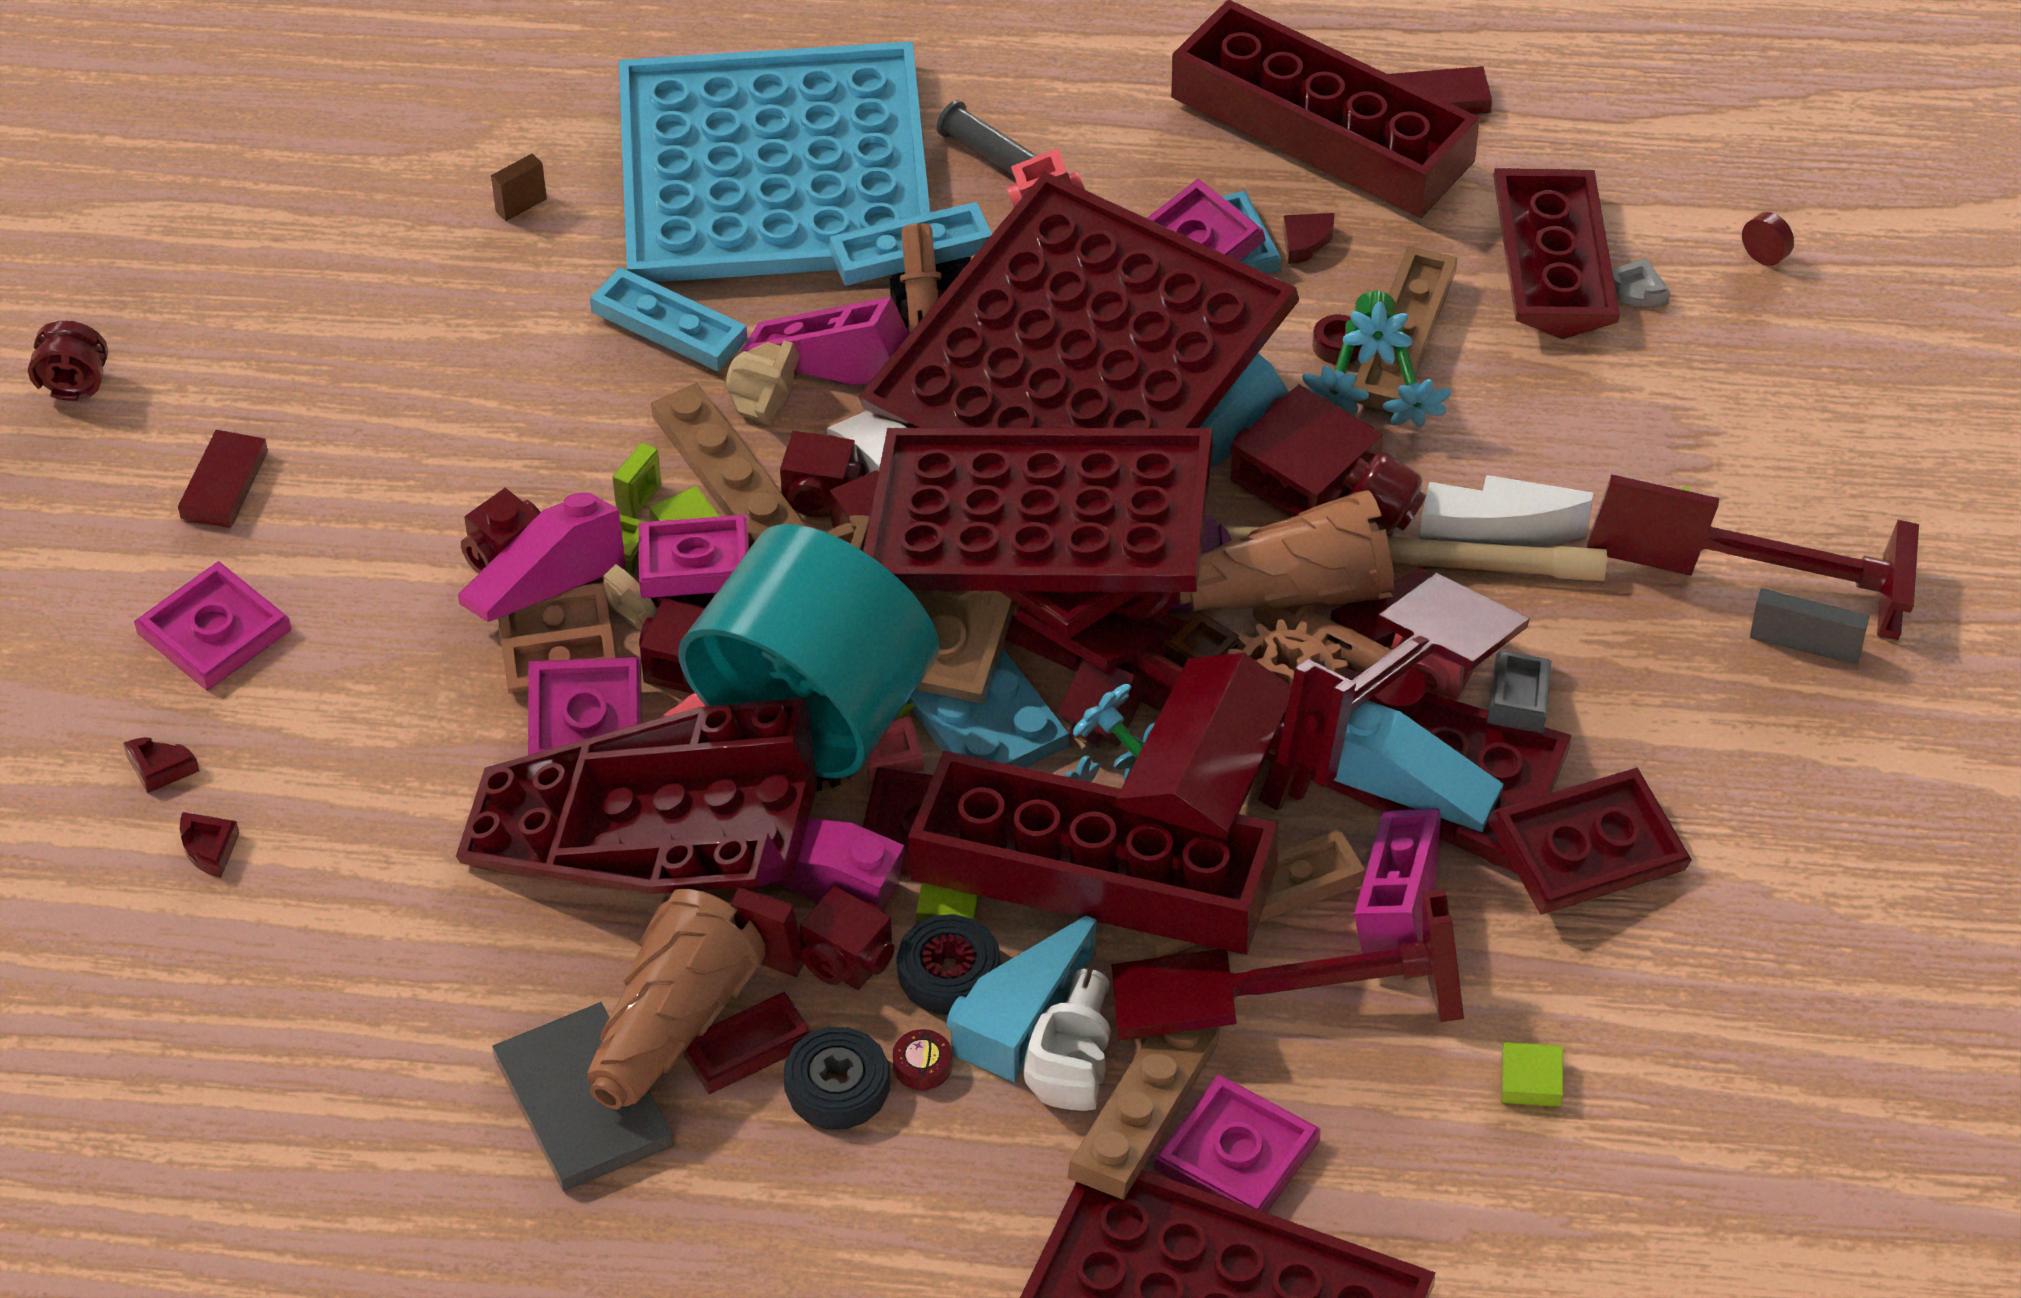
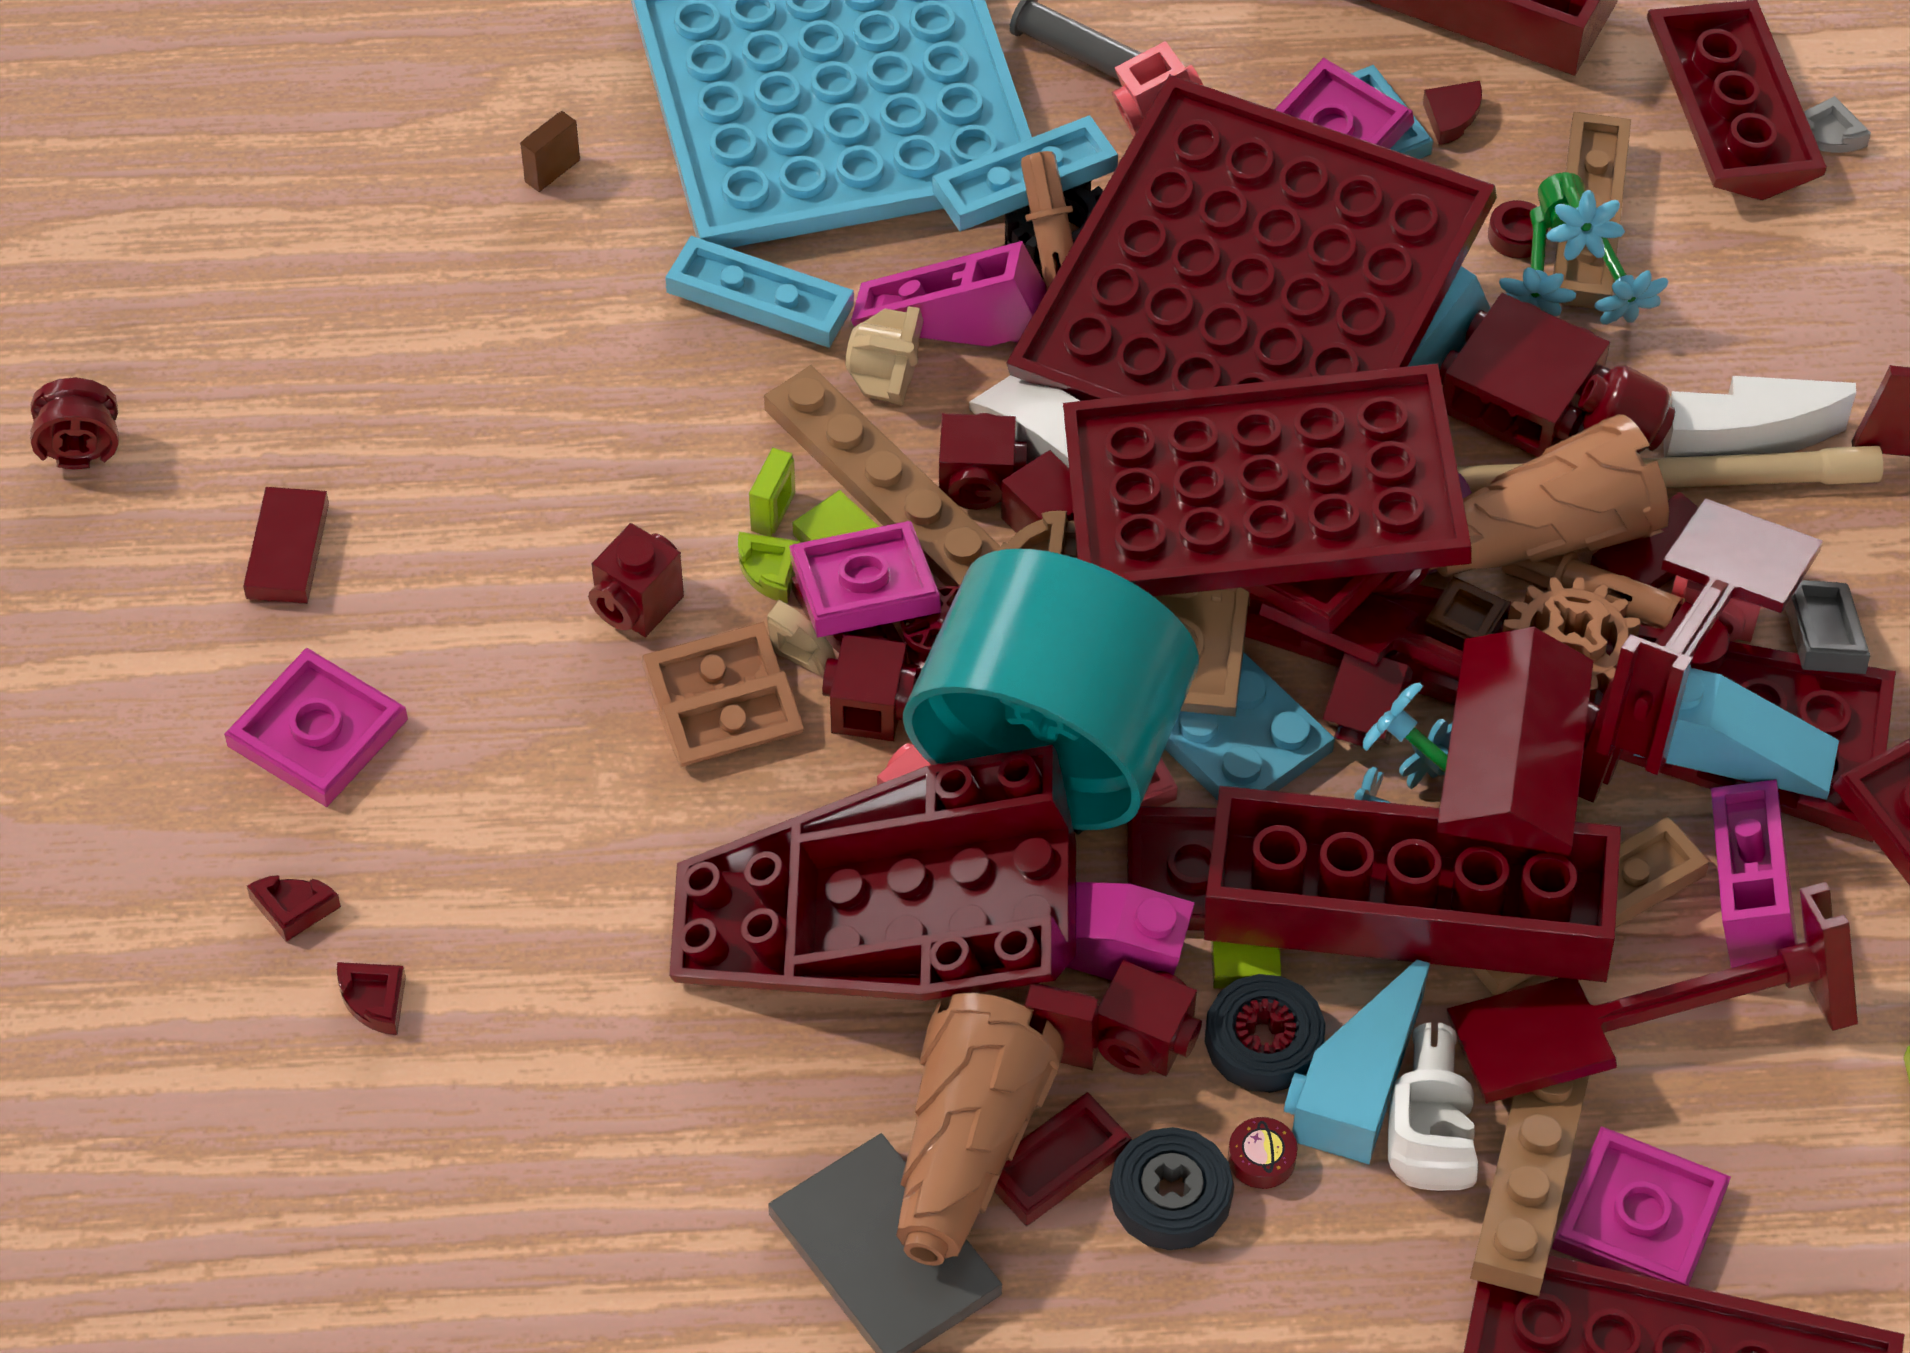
camera: 10 degrees left, 5 degrees up
(550, 556) = (696, 601): dark pink slope -> none
(581, 699) = (773, 770): dark pink tile -> none

